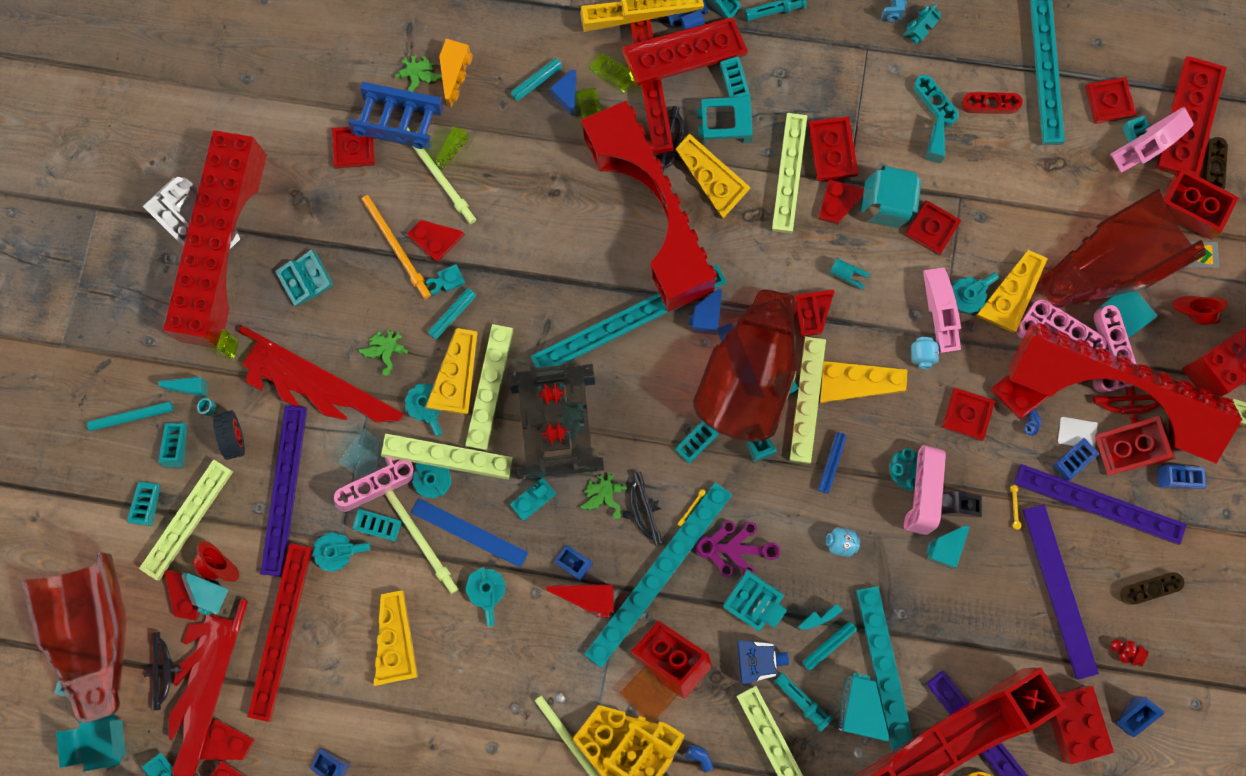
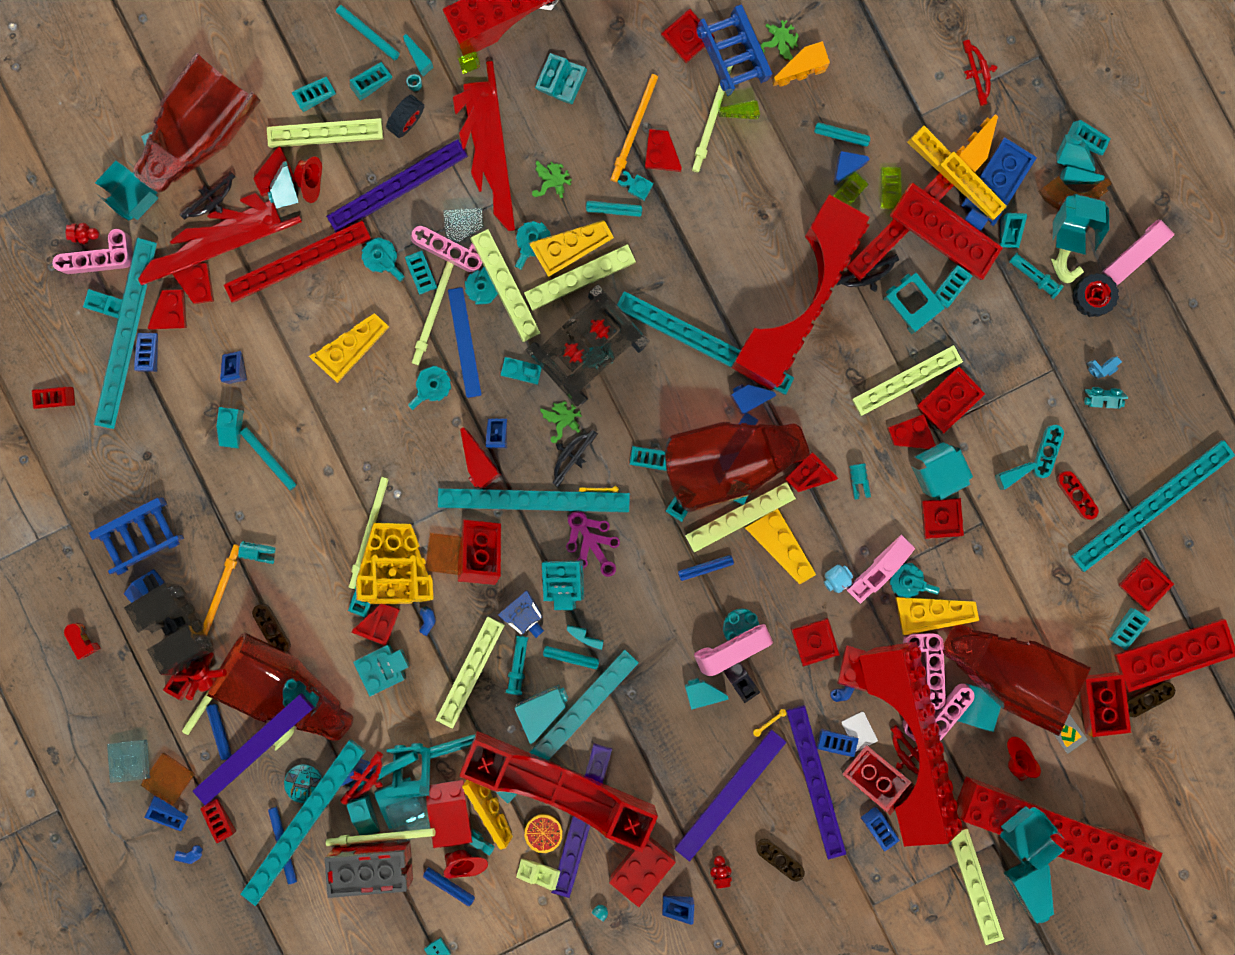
camera: 50 degrees right, 10 degrees up
(713, 176) = (861, 328): yellow wing -> none
(843, 542) = (652, 616): medium azure head -> none
(1154, 141) = (1132, 640): bright pink slope -> none

